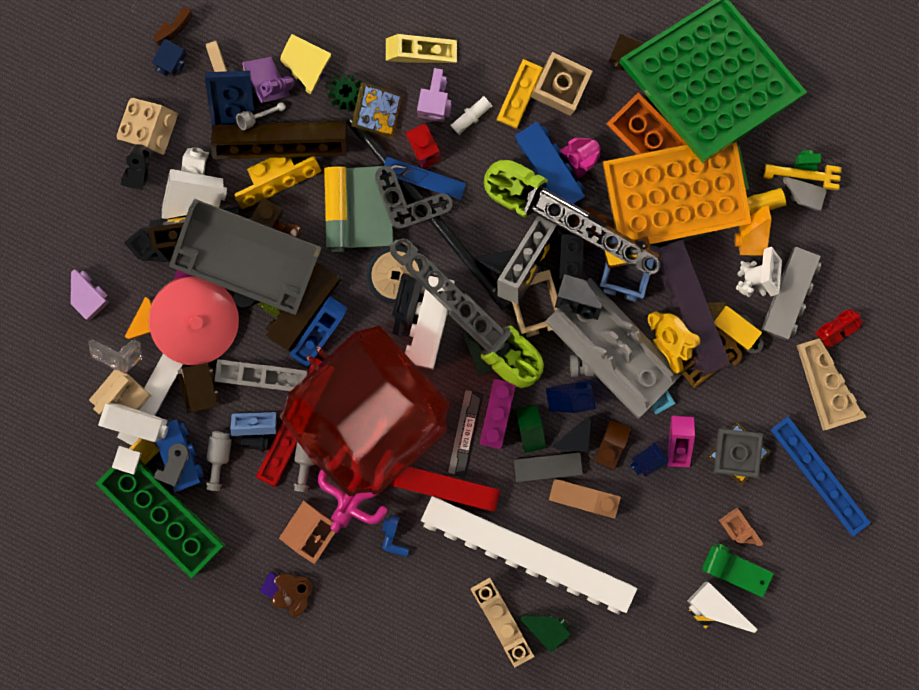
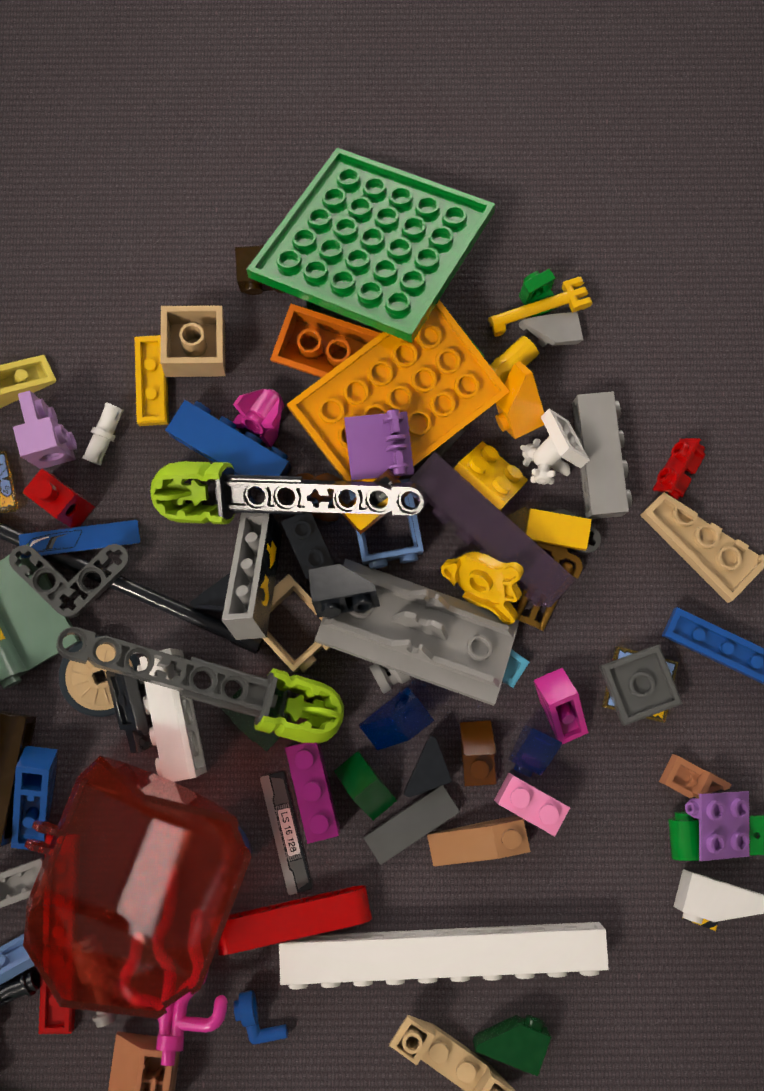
camera: 25 degrees left, 5 degrees down
(630, 491) = (531, 804): none -> bright pink brick
(648, 217) = (378, 444): none -> medium lavender hinge
(712, 271) = (491, 474): none -> yellow plate
(743, 563) = (721, 824): none -> medium lavender hinge

